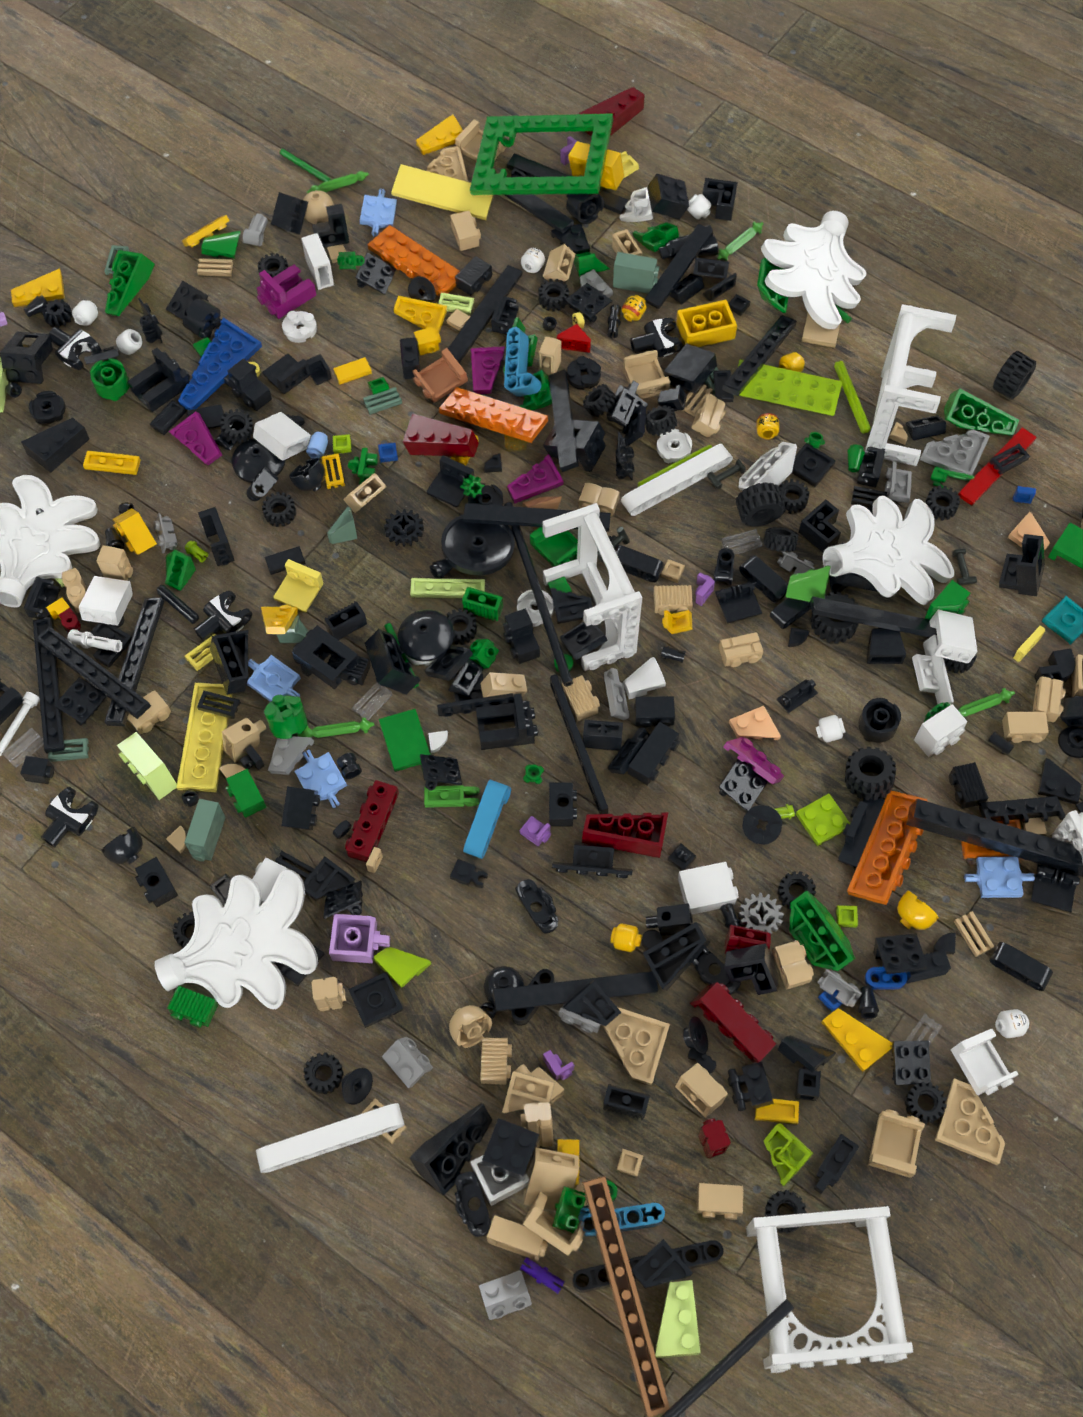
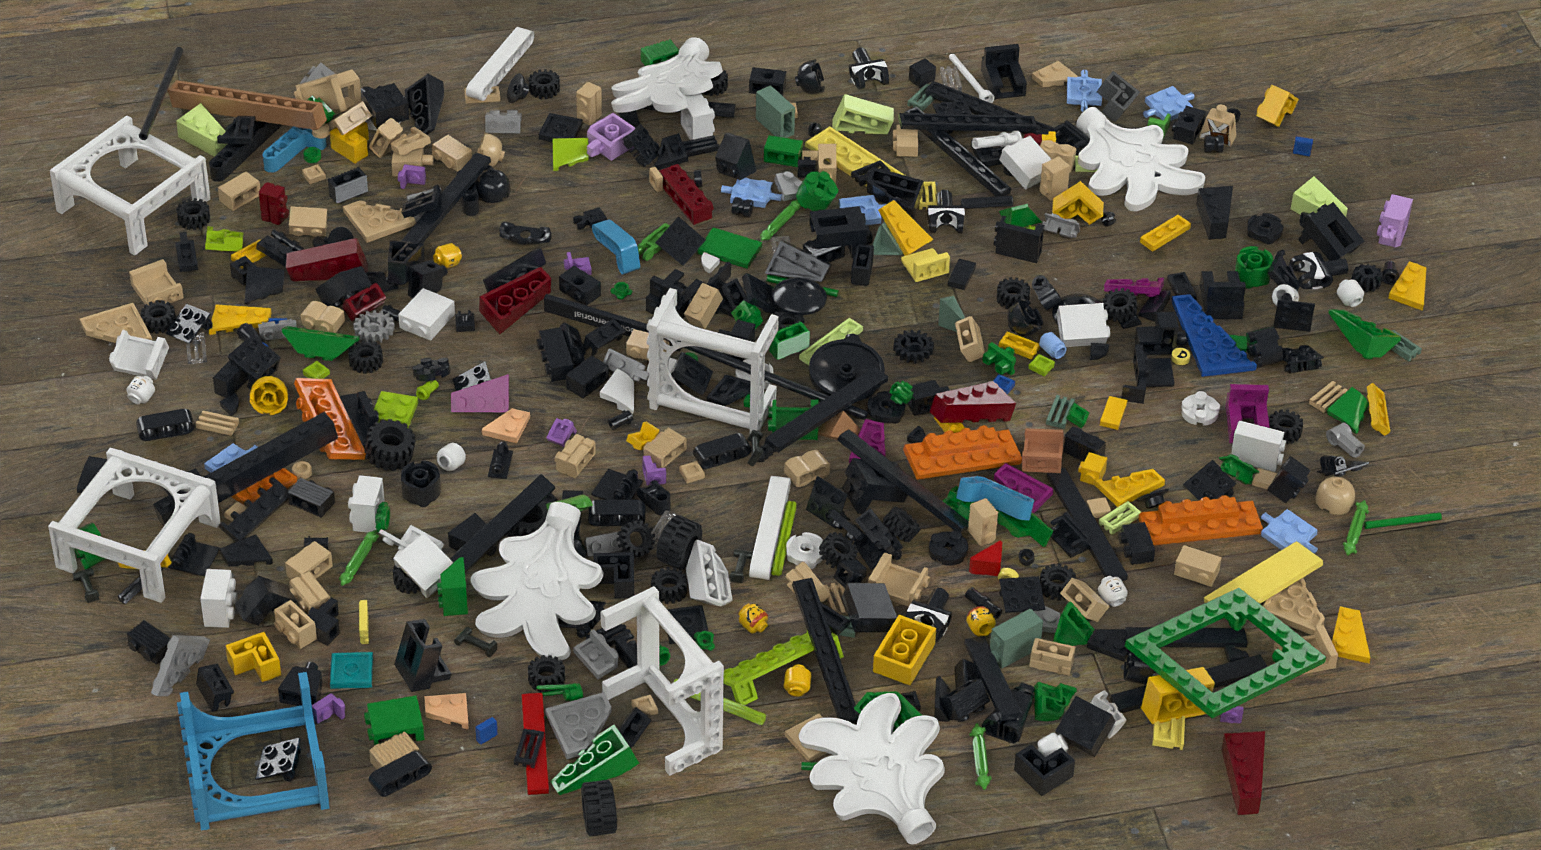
camera: 130 degrees right, 20 degrees down
(726, 679) = (561, 431): none -> medium lavender bracket

